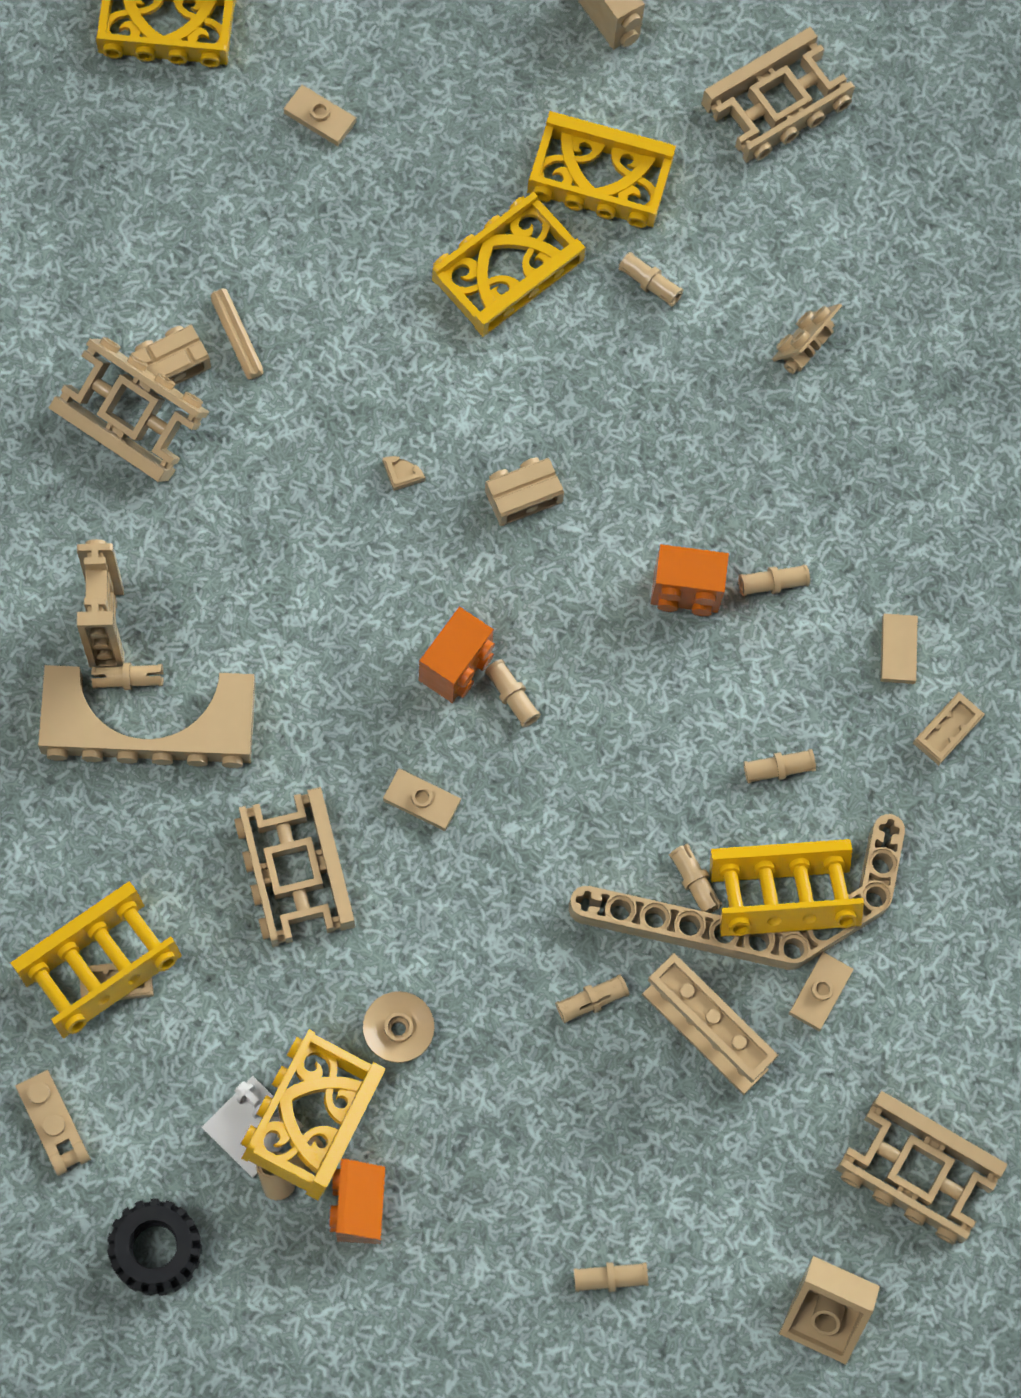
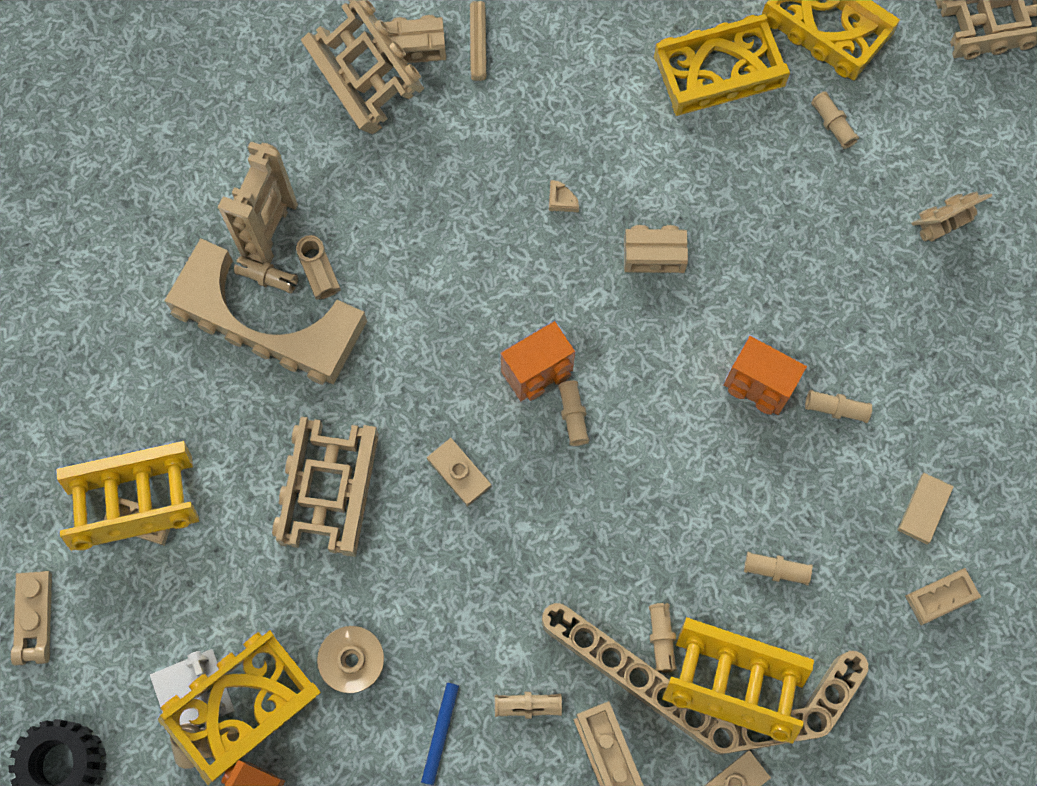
camera: 30 degrees right, 0 degrees up
(181, 649) = (317, 268): none -> tan piece
(517, 1062) = (440, 734): none -> blue bar

